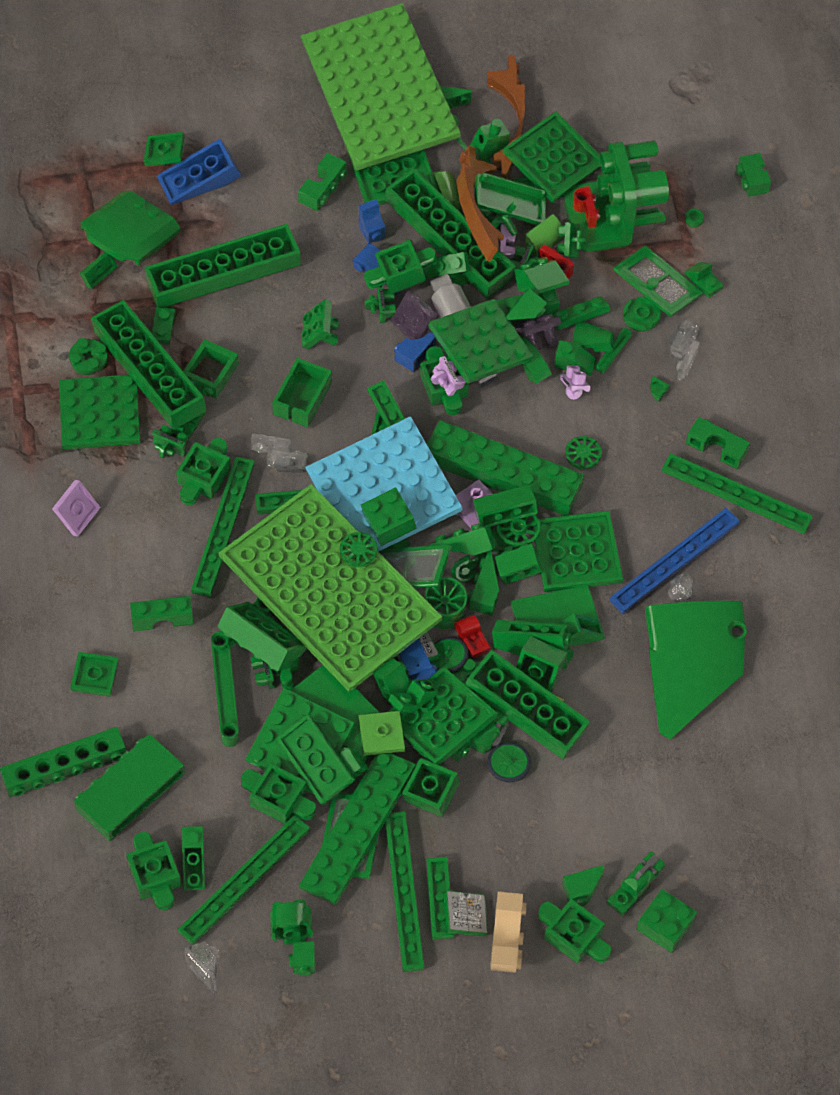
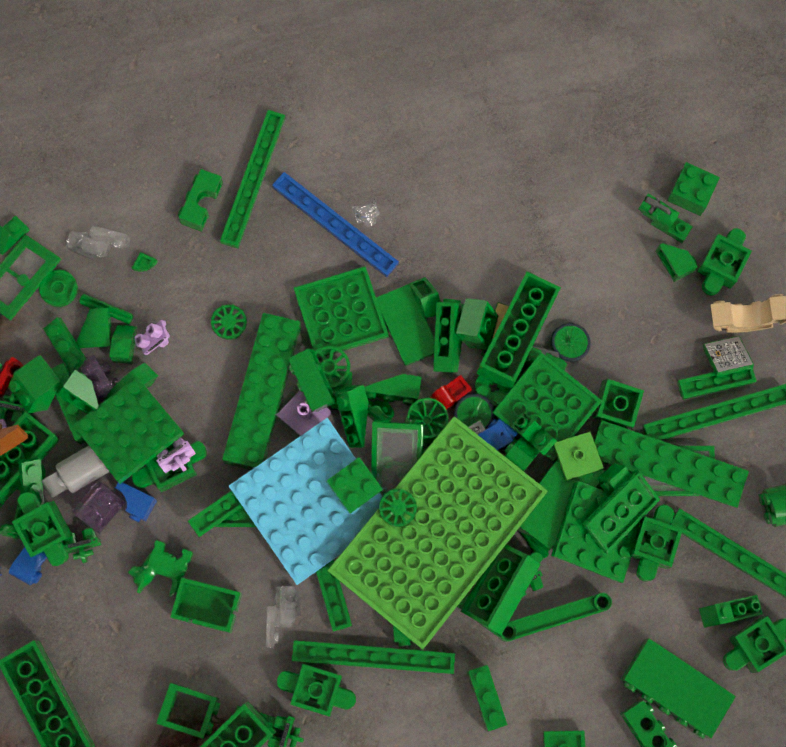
camera: 105 degrees left, 15 degrees up
(318, 324) = (120, 605): green plate -> none
(349, 365) = (163, 564): none -> green animal
(518, 564) = (368, 361): green brick -> none
(692, 657) = (435, 195): green panel -> none

